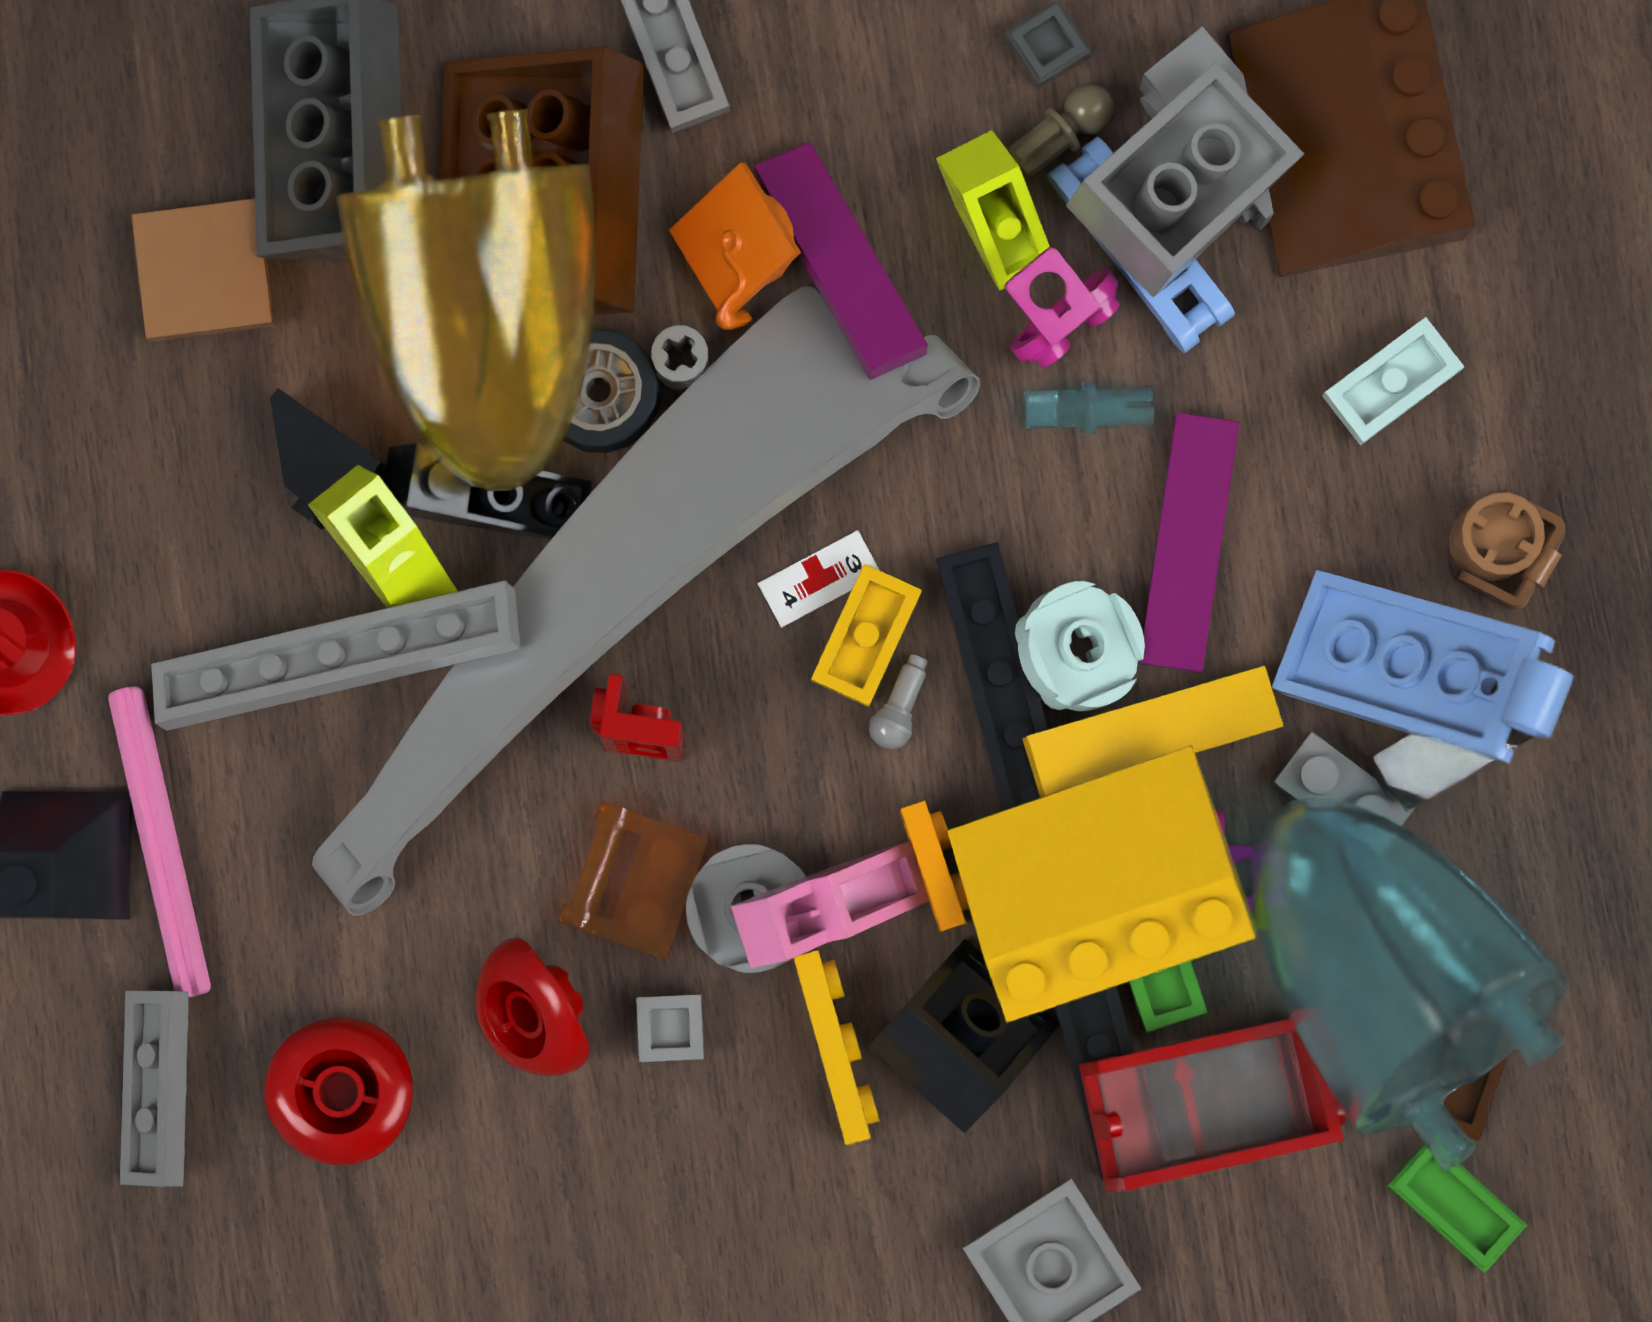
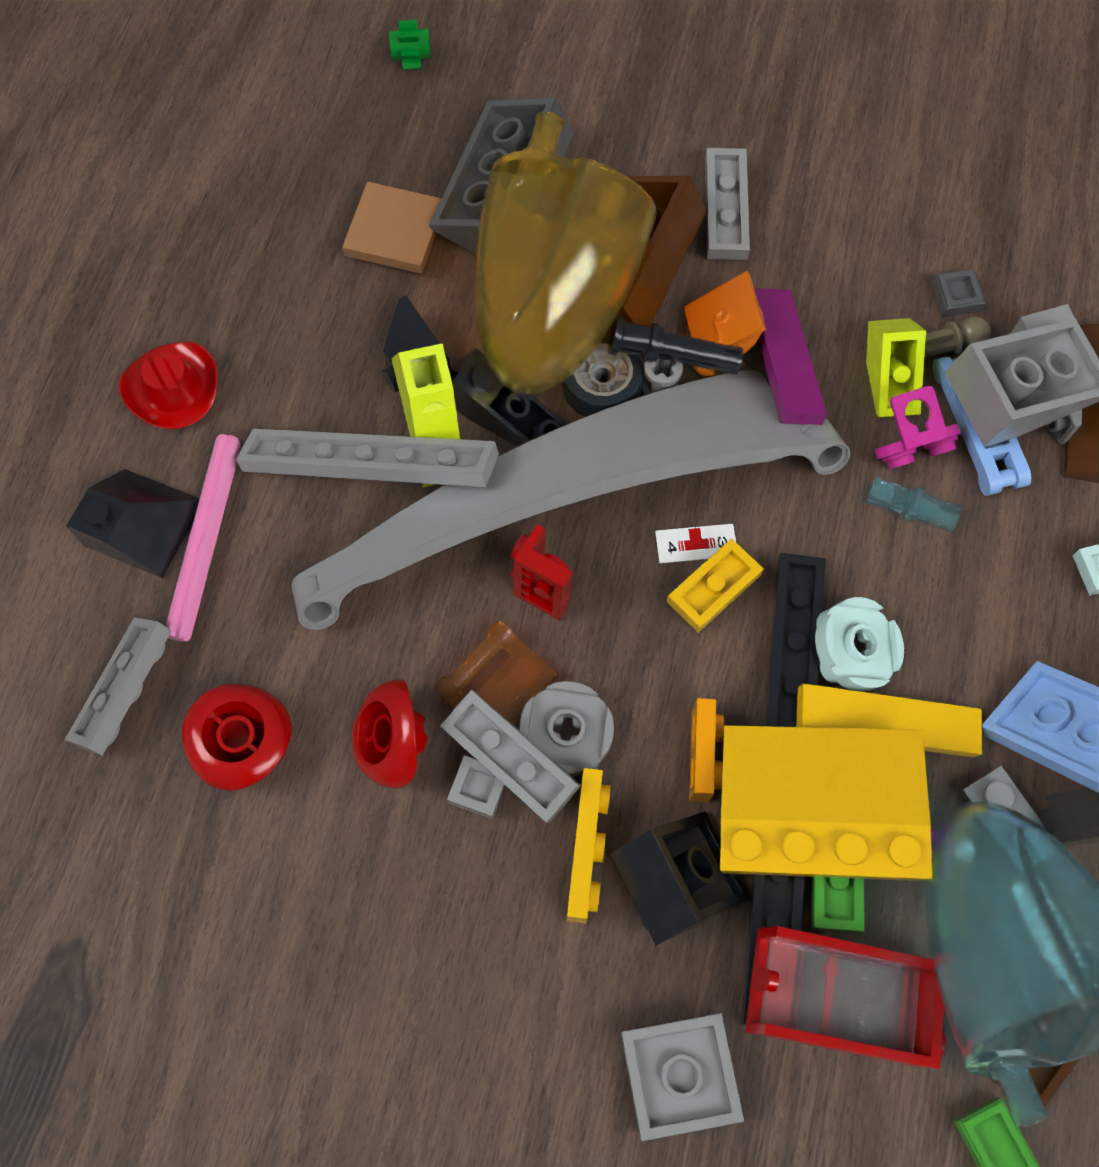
camera: 20 degrees right, 15 degrees down
(656, 333) = (654, 343): none -> black pin
(695, 978) = (510, 756): none -> light grey plate
(829, 905) = (621, 742): bright pink slope -> none
(892, 723) = (711, 647): light grey piece -> none
(1189, 542) = (952, 613): magenta tile -> none

